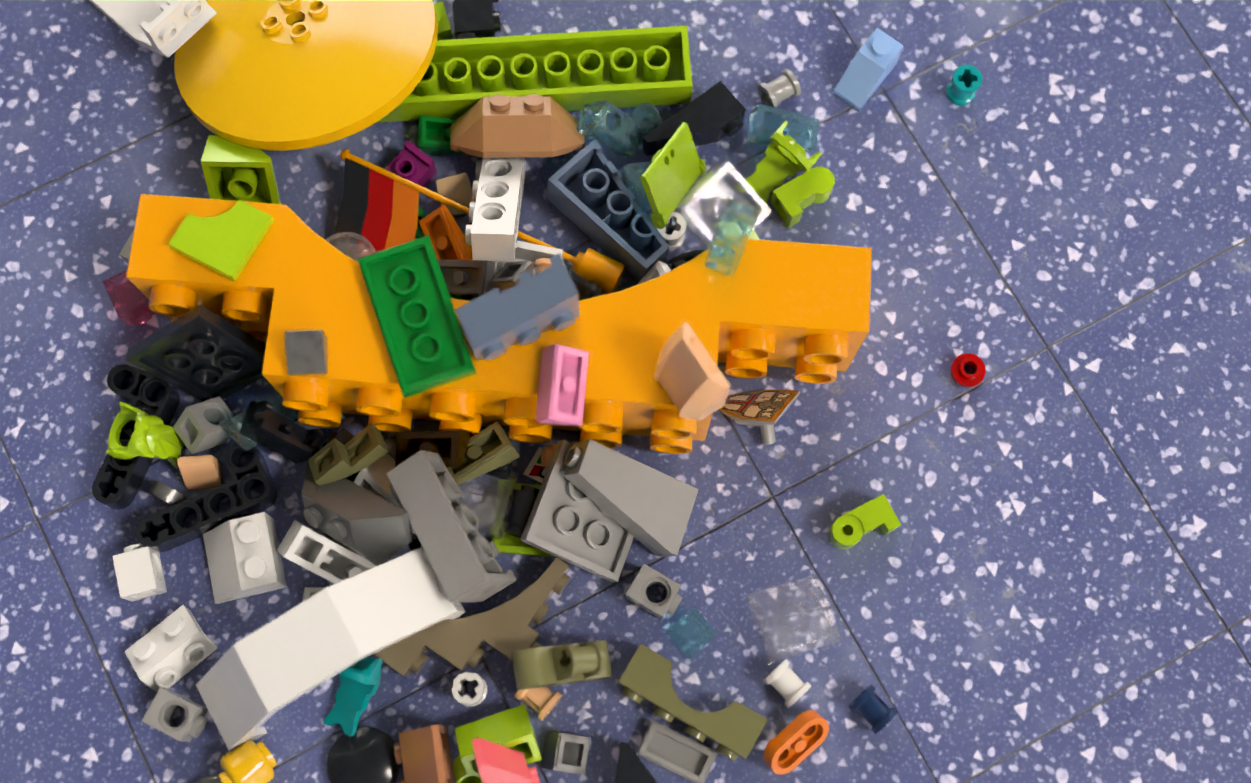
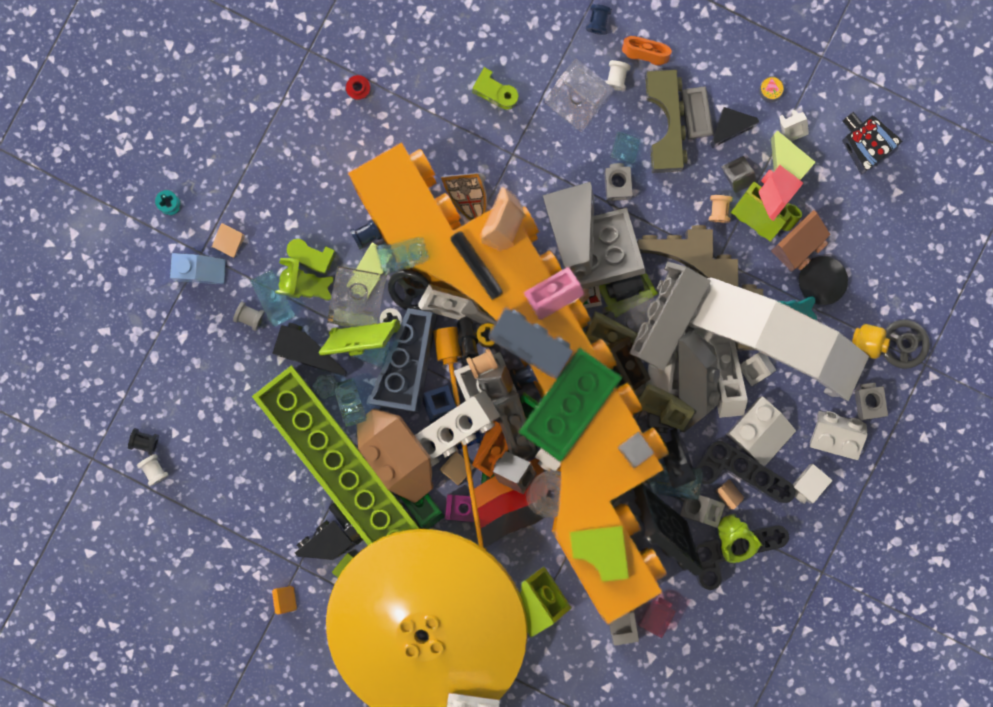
camera: 125 degrees left, 10 degrees up
(166, 493) = (756, 503): flat silver tile -> none
(399, 233) = (514, 472): none -> dark grey brick
(458, 688) = (750, 246): white bush -> none
(539, 217) = (438, 403): none -> dark blue brick
(561, 664) = (696, 204): olive beam -> none
(657, 317) = (476, 265): none -> black axle
(880, 124) = (228, 240): none -> light nougat slope

